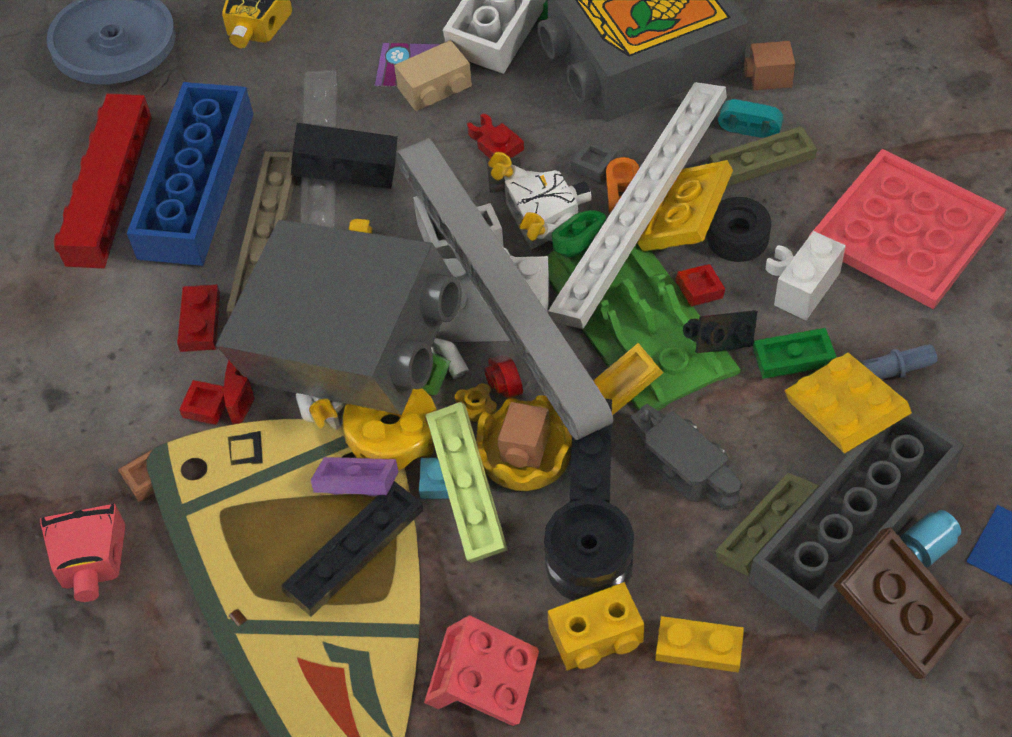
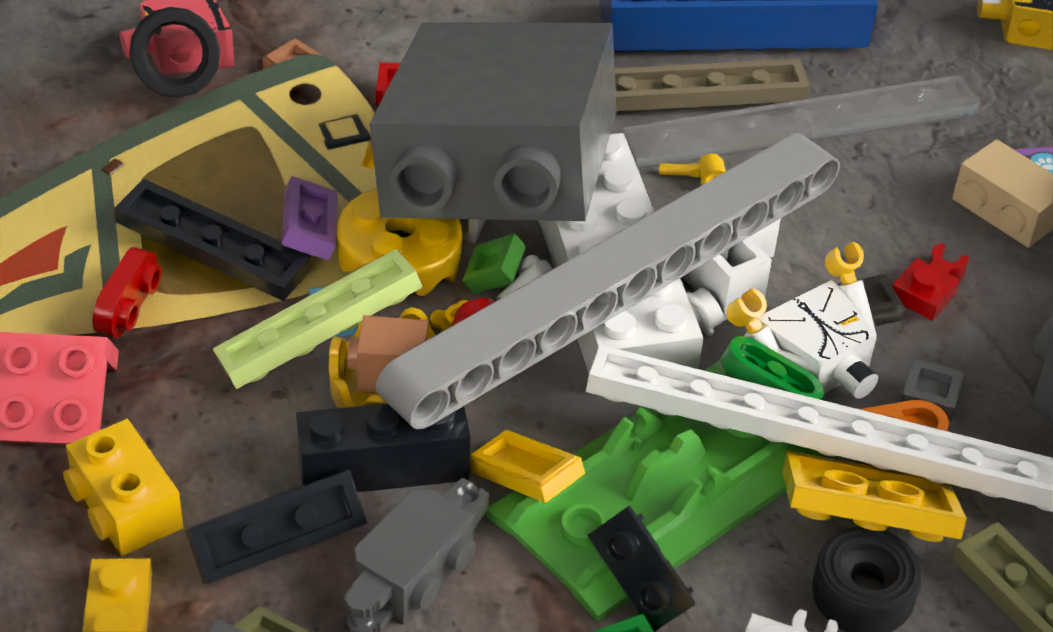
camera: 70 degrees right, 10 degrees down
(110, 556) = (173, 87): none -> black tyre
(344, 155) = (813, 103): black brick -> none
(410, 617) = (125, 291): none -> red plate
(588, 548) = (228, 449): black wheel -> none
(651, 540) = (275, 526): none -> black plate
(700, 285) = (736, 542): red plate -> none

